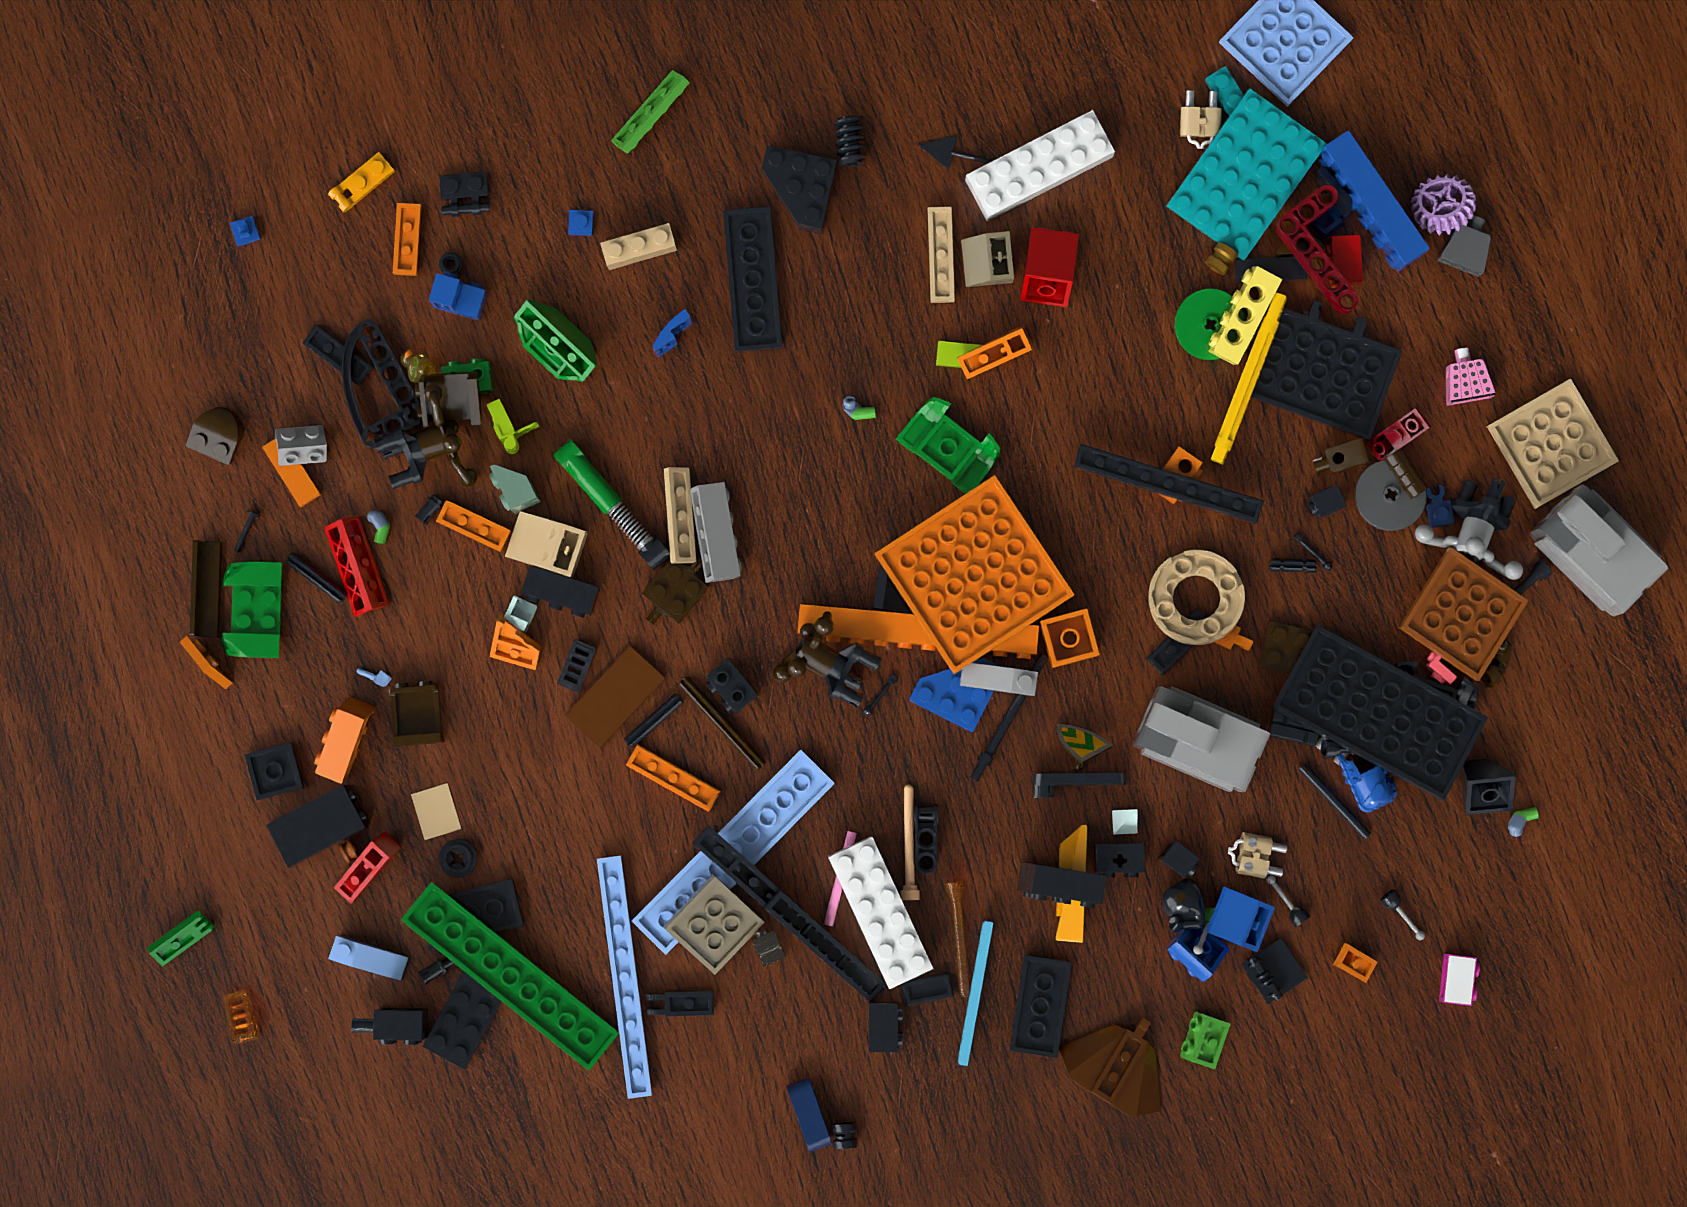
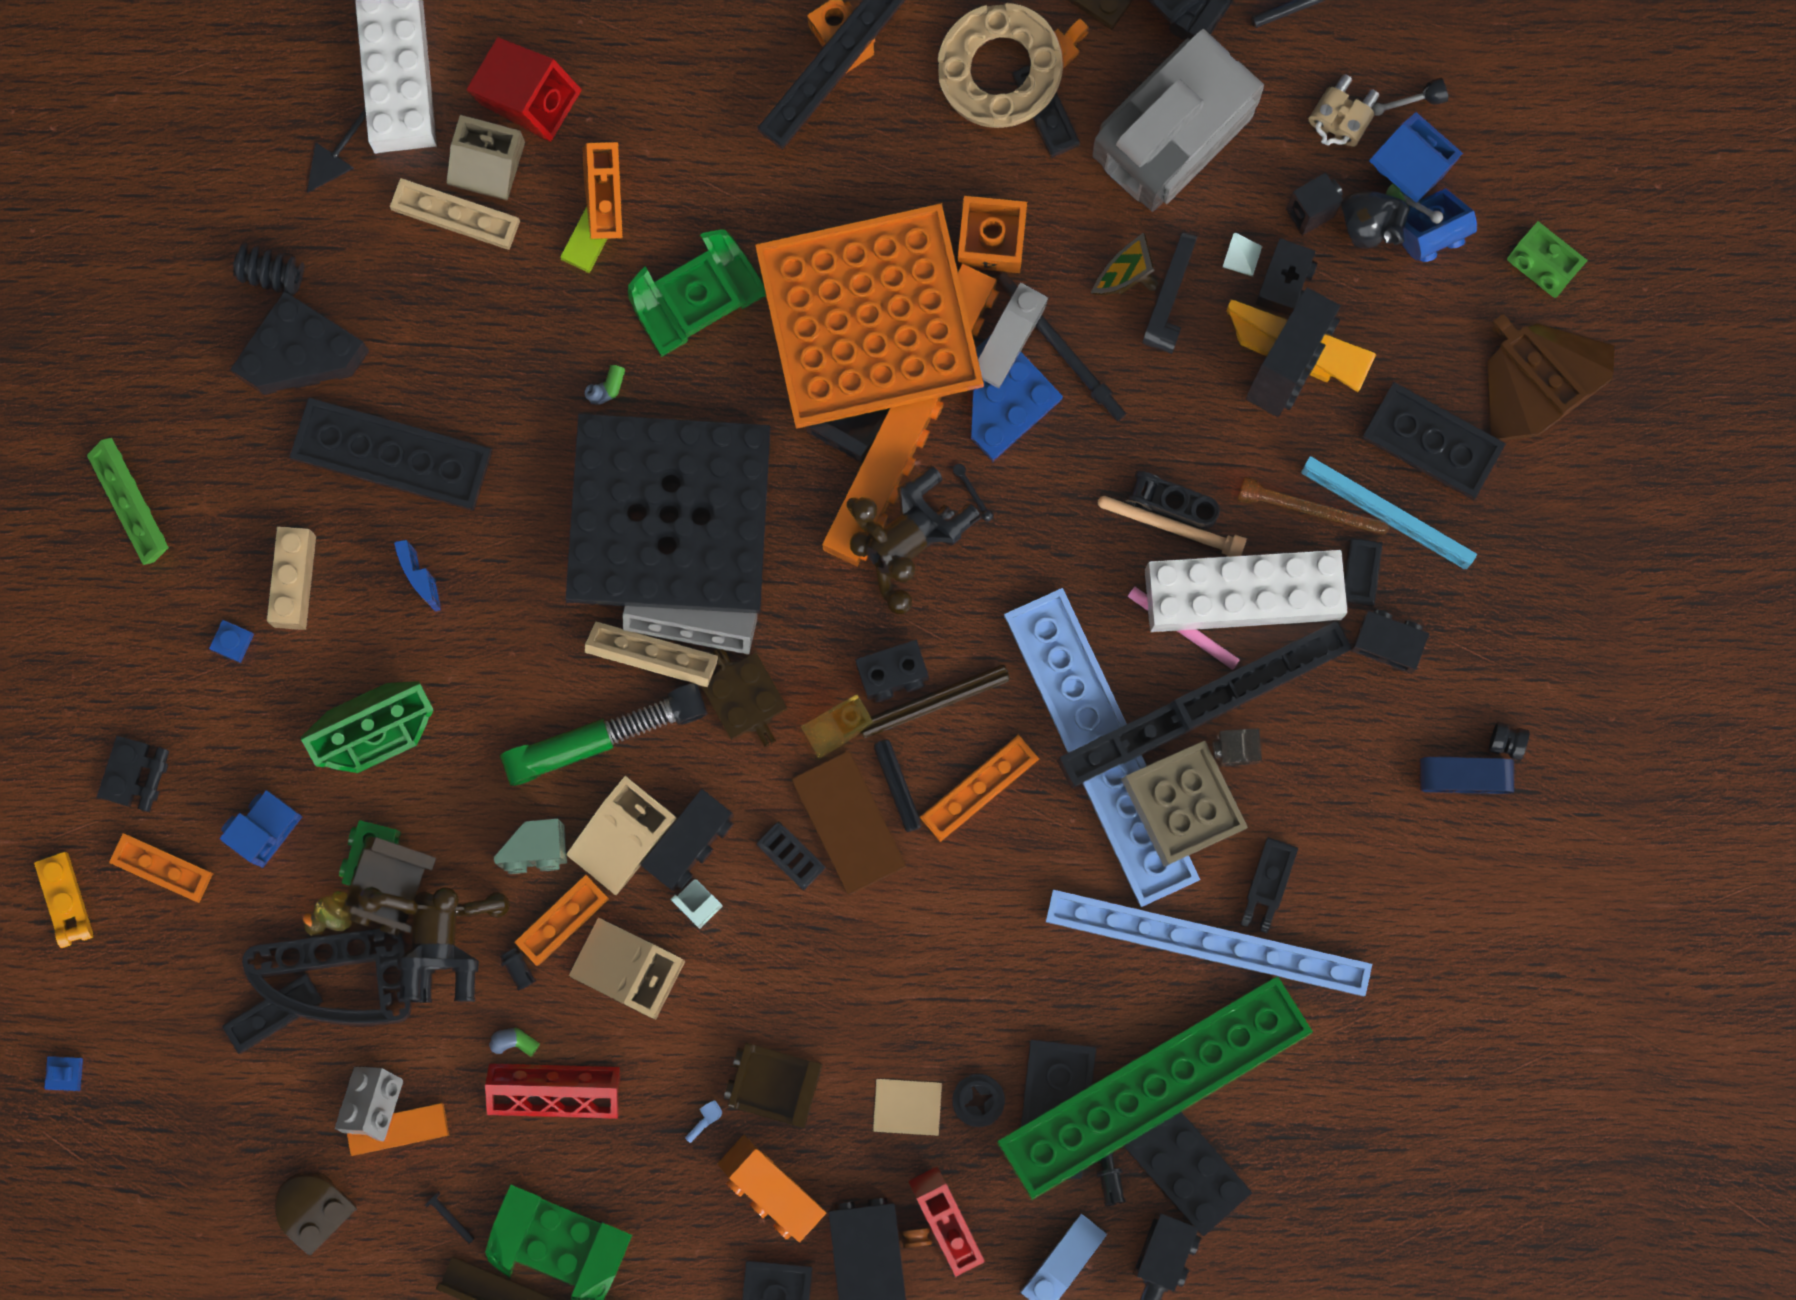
camera: 70 degrees left, 5 degrees down
(316, 578) = (547, 1149): black axle -> none
(450, 256) = (206, 822): black plate -> none
(456, 583) = (627, 968): none -> tan slope
(505, 429) = (452, 831): lime piece -> none
(514, 645) = (734, 924): orange wing -> none
(677, 663) = (836, 726): none -> clear yellow slope
(802, 445) = (623, 470): none -> black plate
(1274, 971) = (1492, 146): black hinge -> none
(1355, 962) = (1514, 47): orange slope -> none

